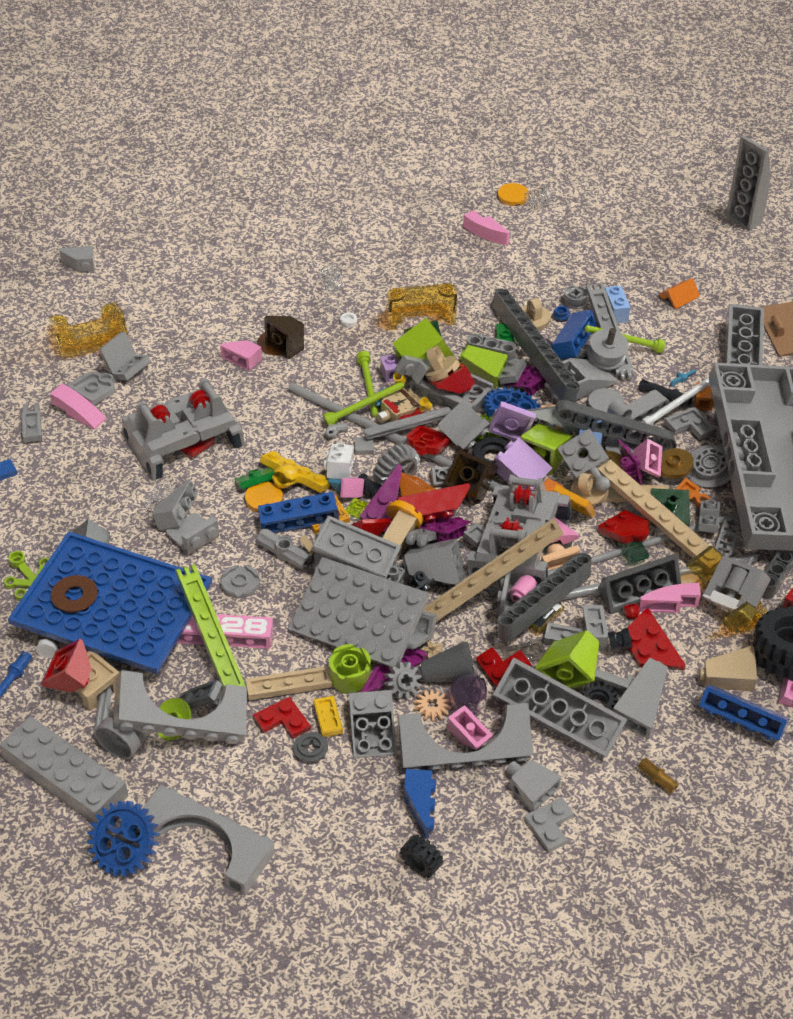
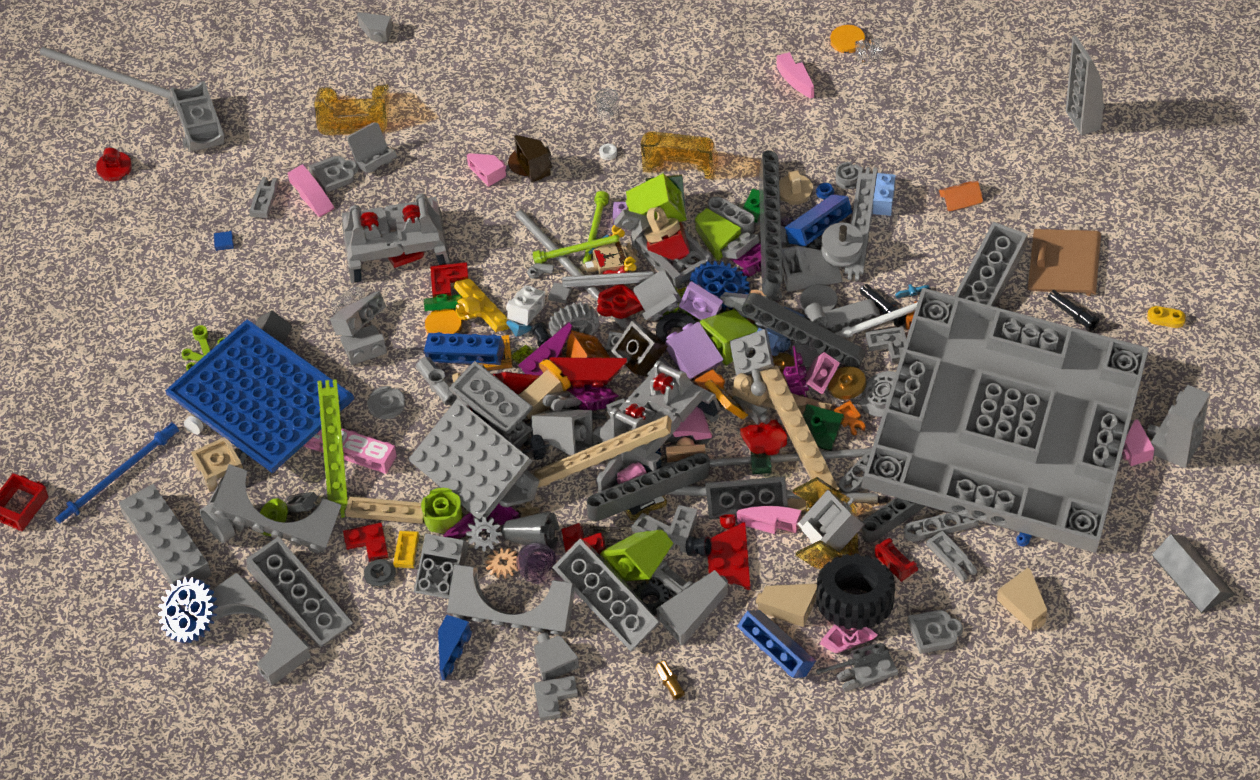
camera: 25 degrees right, 5 degrees up
(60, 588) = (218, 373): reddish brown gear -> none
(68, 668) = (197, 450): red slope -> none
(234, 788) = (297, 592): none -> light grey slope
(247, 453) = (444, 275): none -> red plate
(351, 487) = (524, 334): bright pink slope -> none
(421, 856) = (425, 693): black tyre -> none
(468, 728) = (518, 592): bright pink slope -> none
(609, 507) = (757, 413): none -> dark grey piece
(657, 345) = (902, 249): lime piece -> none
(709, 516) = (852, 446): light grey slope -> none

